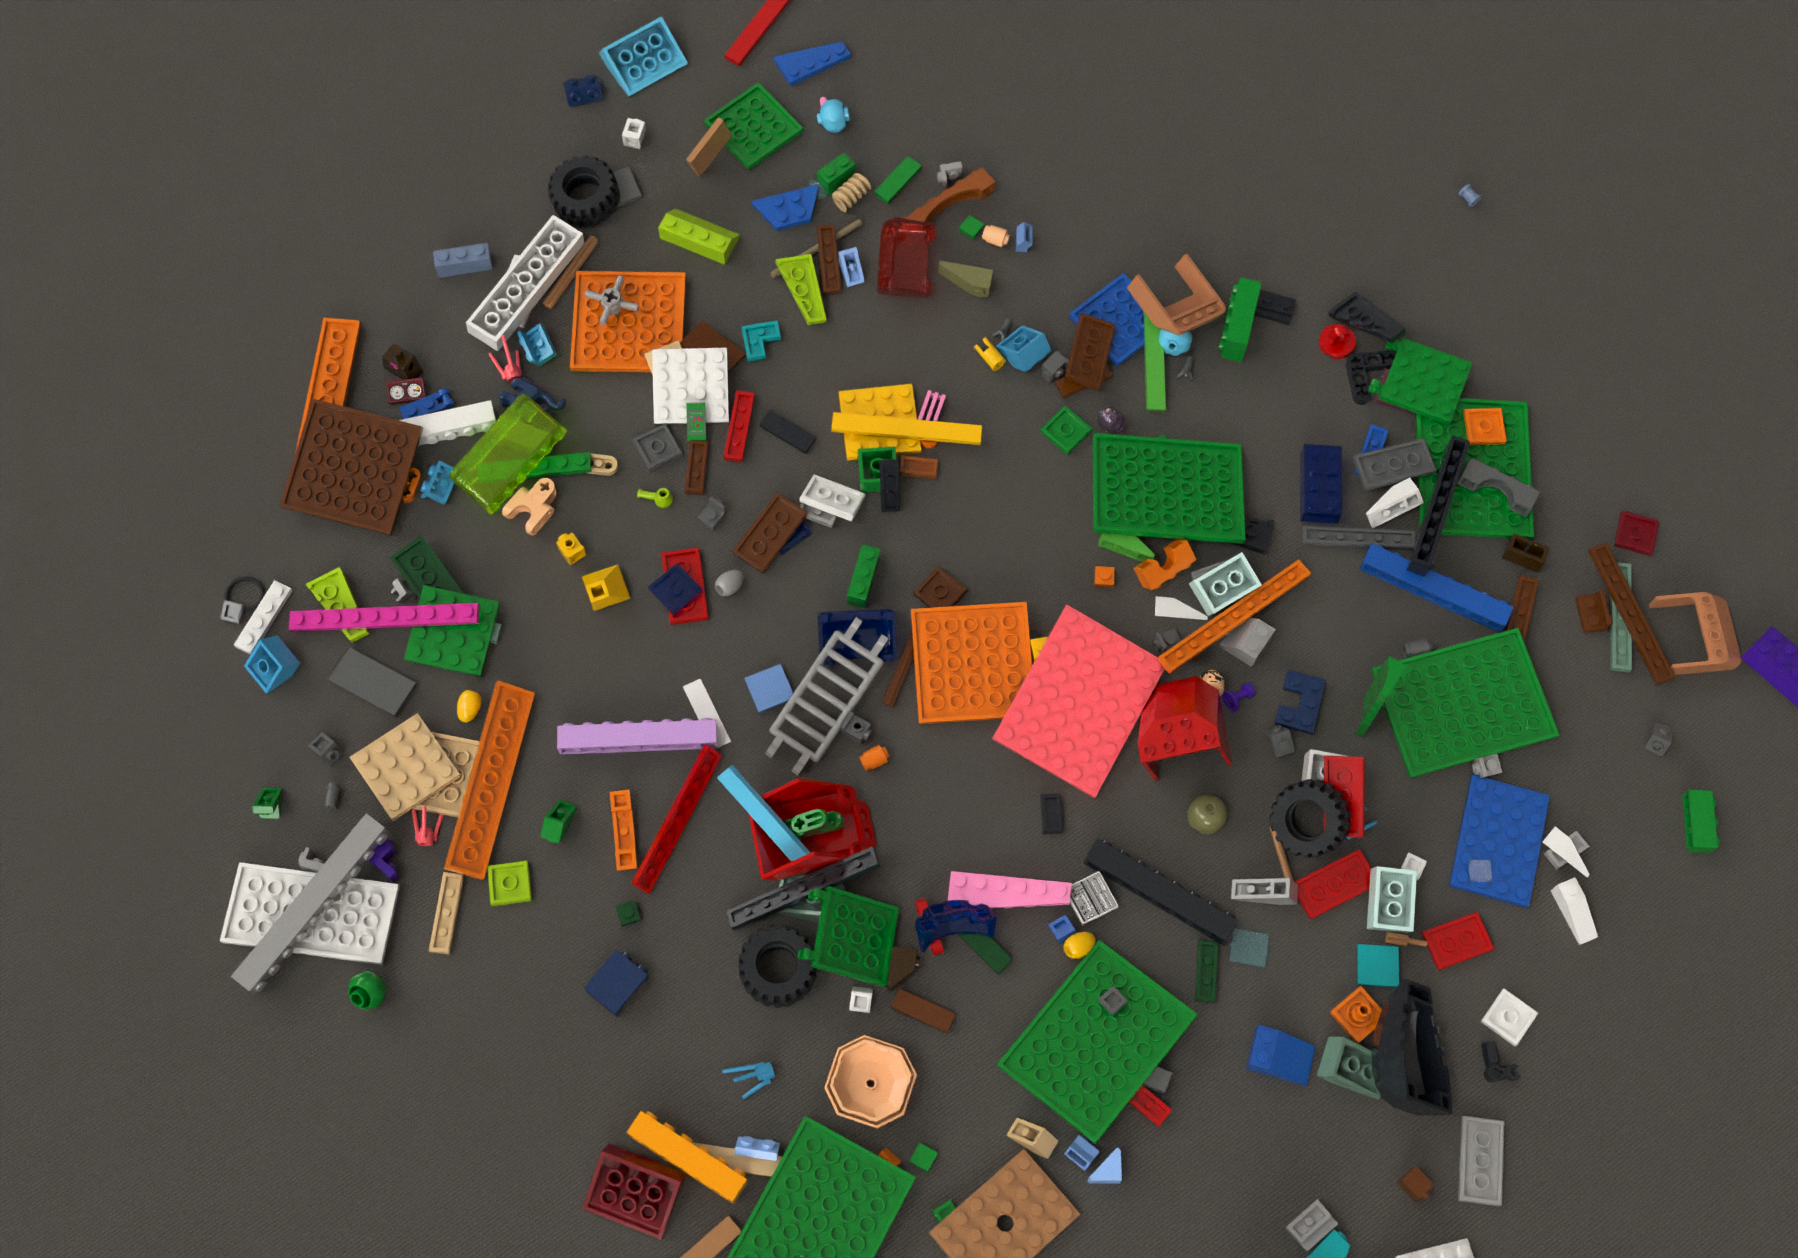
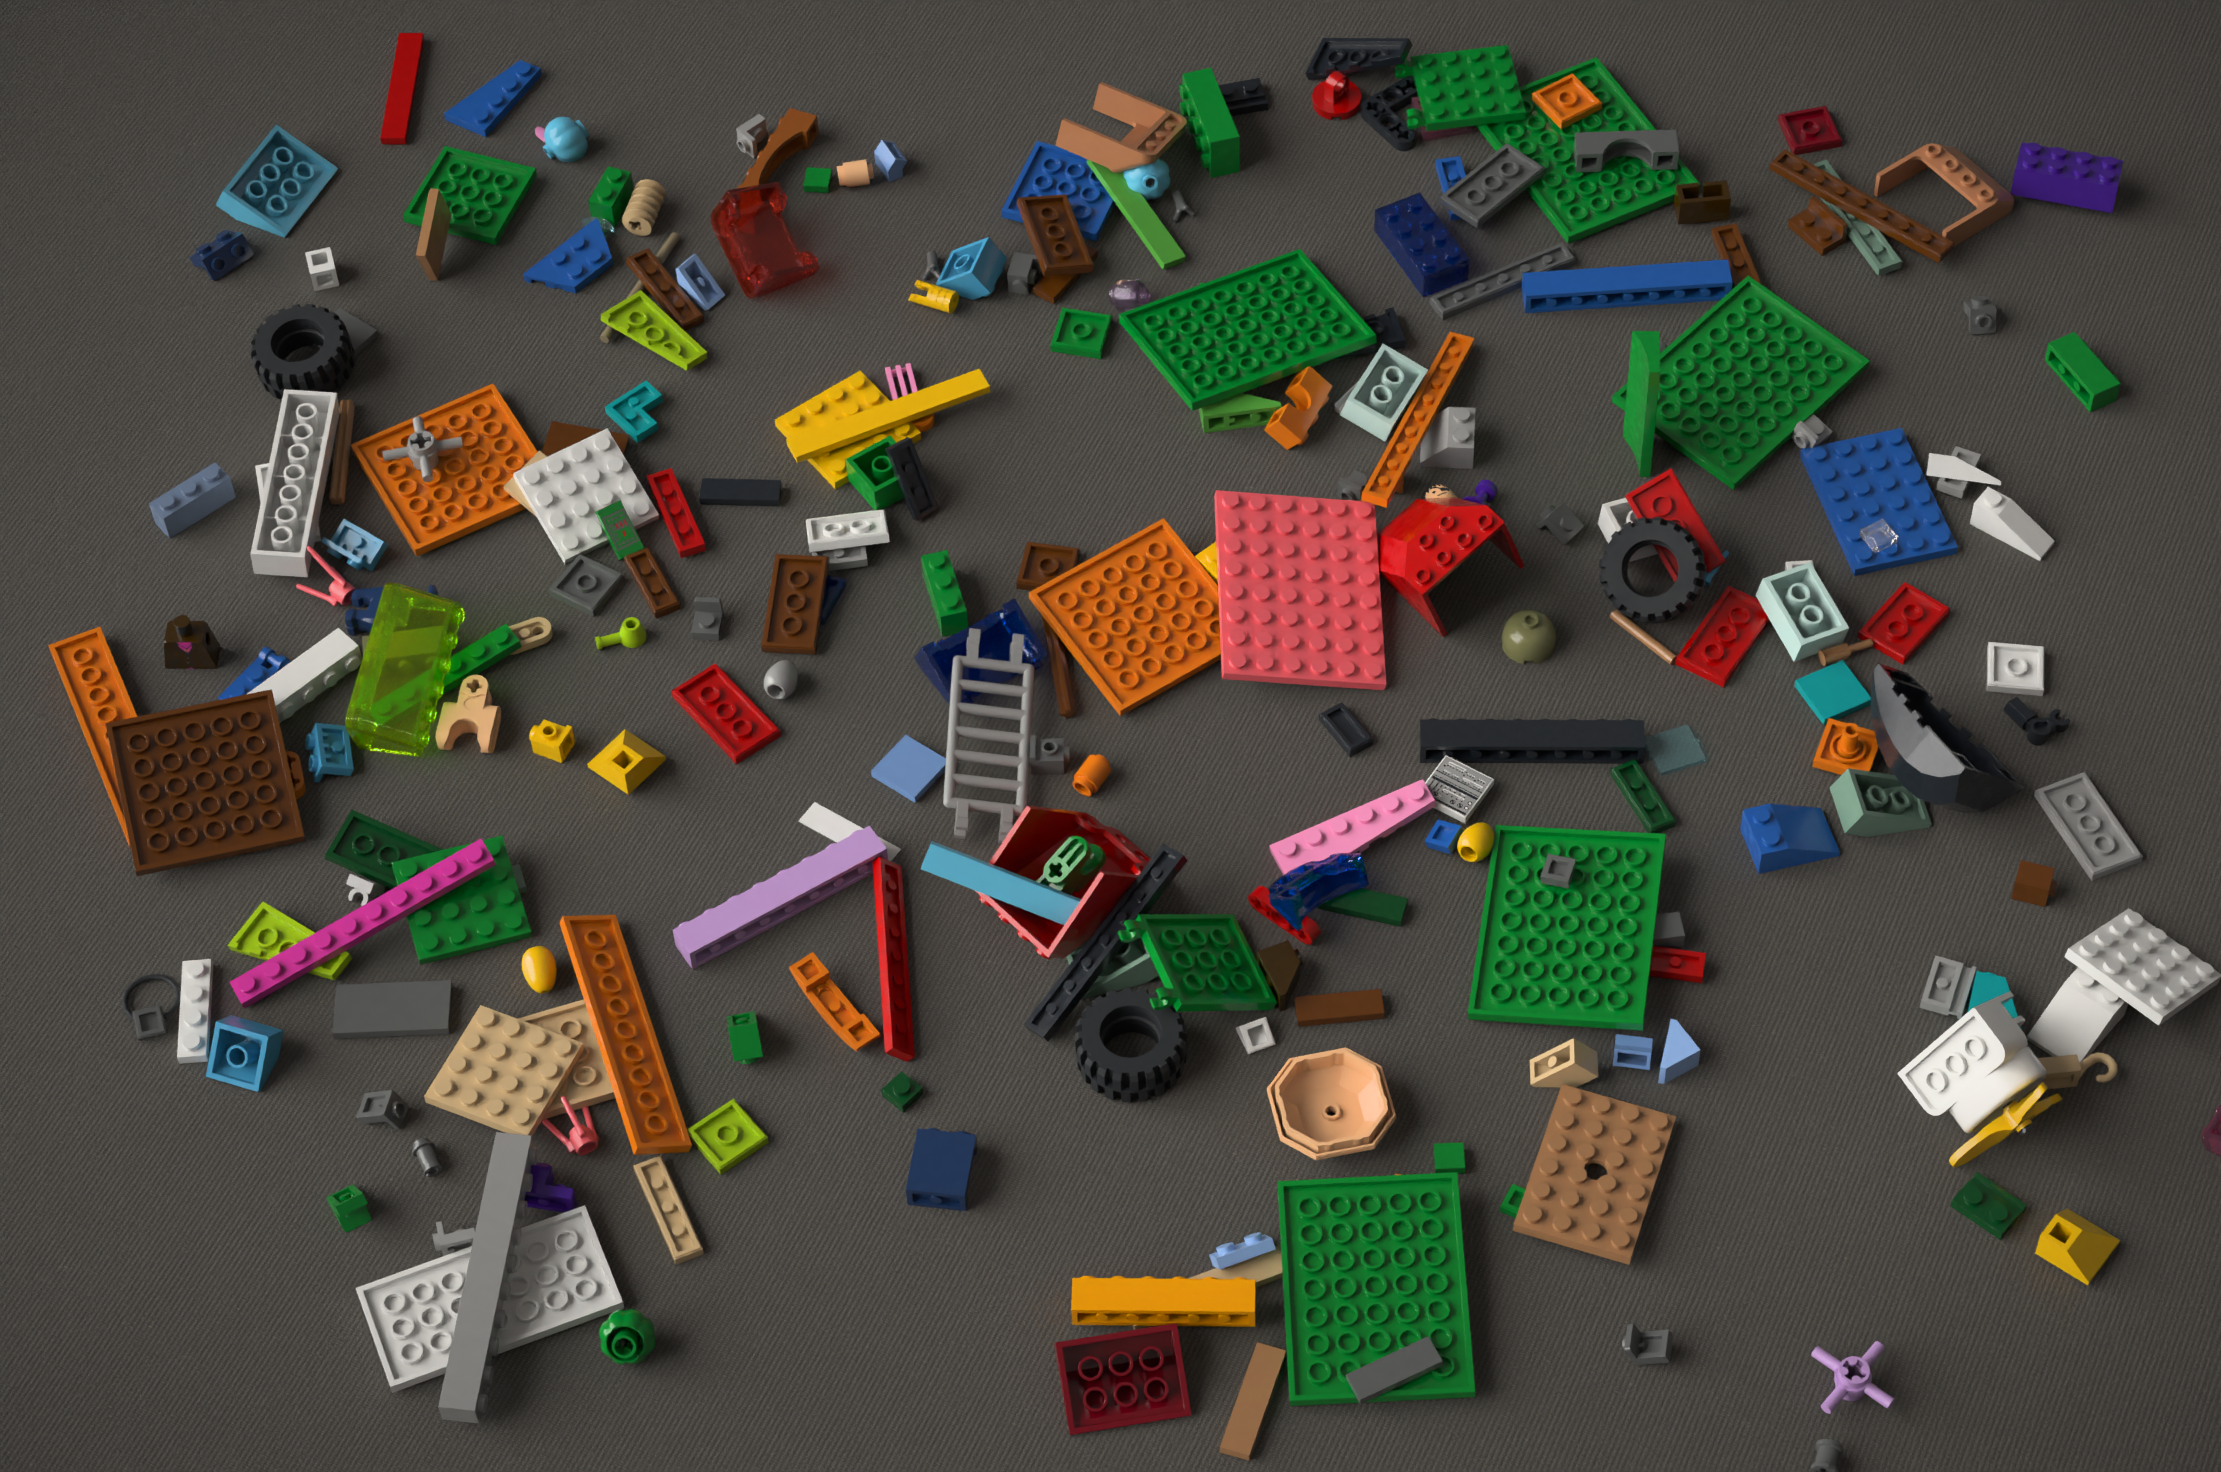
camera: 25 degrees left, 15 degrees down
(405, 390) = (213, 675): slope -> none
(675, 589) = (717, 718): clear blue tile -> none
(698, 235) = (481, 341): lime slope -> none
(763, 1072) = (1189, 1170): dark azure plant -> none
(898, 180) = (691, 172): green tile -> none
(918, 467) = (936, 451): dark orange tile -> none
(971, 279) = (854, 231): olive slope -> none
(1104, 576) = (1234, 459): orange plate -> none
(1174, 608) = (1339, 453): white sticker -> none
(1268, 891) = (1652, 679): light grey slope -> none
(1311, 693) = (1561, 460): dark blue plate -> none
(1395, 502) = (1520, 221): white slope -> none
(1438, 506) = (1573, 196): black brick -> none

